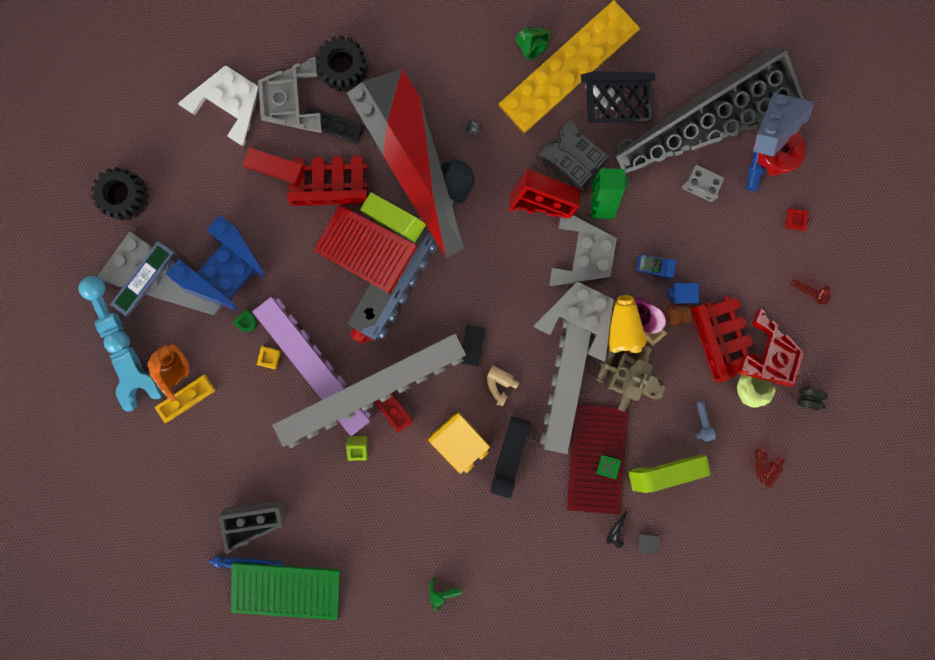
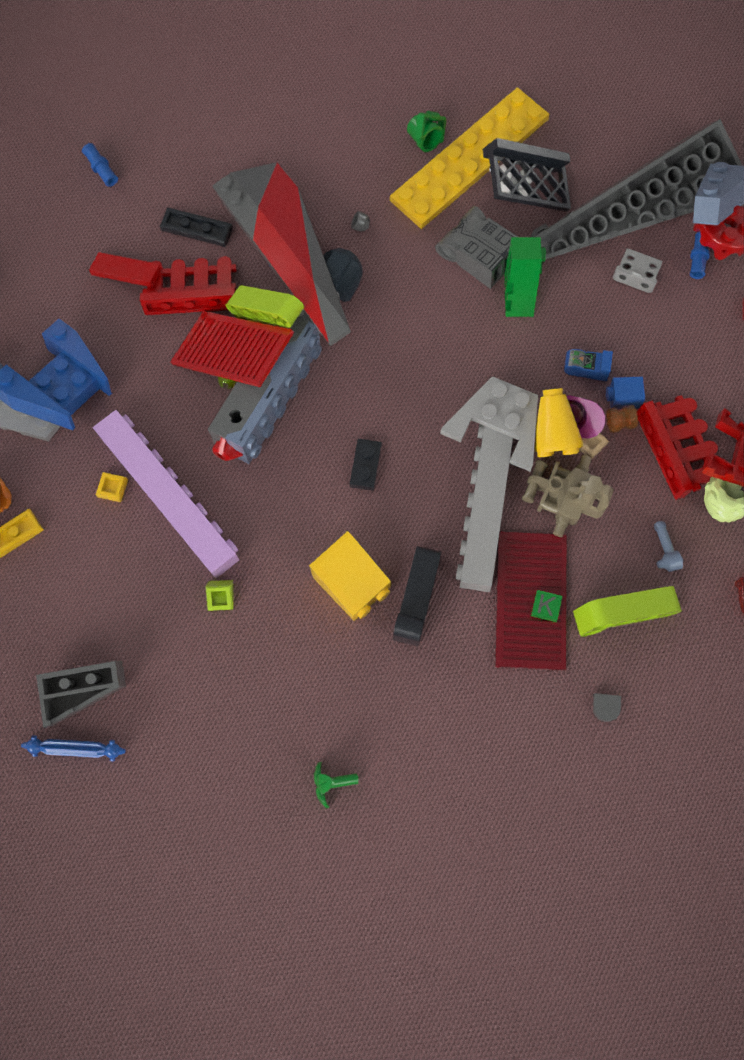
camera: 10 degrees right, 15 degrees down
(230, 93) = (78, 198): white wing -> none
(246, 321) = (85, 446): green tile -> none
(247, 62) = (99, 164): none -> blue pin
(281, 97) = (137, 198): light grey wing -> none
(285, 591) = (121, 782): green window -> none
(335, 49) = (203, 145): black tyre -> none
(368, 390) = (233, 513): light grey brick -> none
(395, 413) = (260, 538): red tile -> none
(503, 378) = (399, 498): tan plant -> none
(545, 195) = (447, 285): red wedge -> none
(592, 254) = (510, 352): light grey wing -> none
(614, 533) = (559, 696): black bar -> none

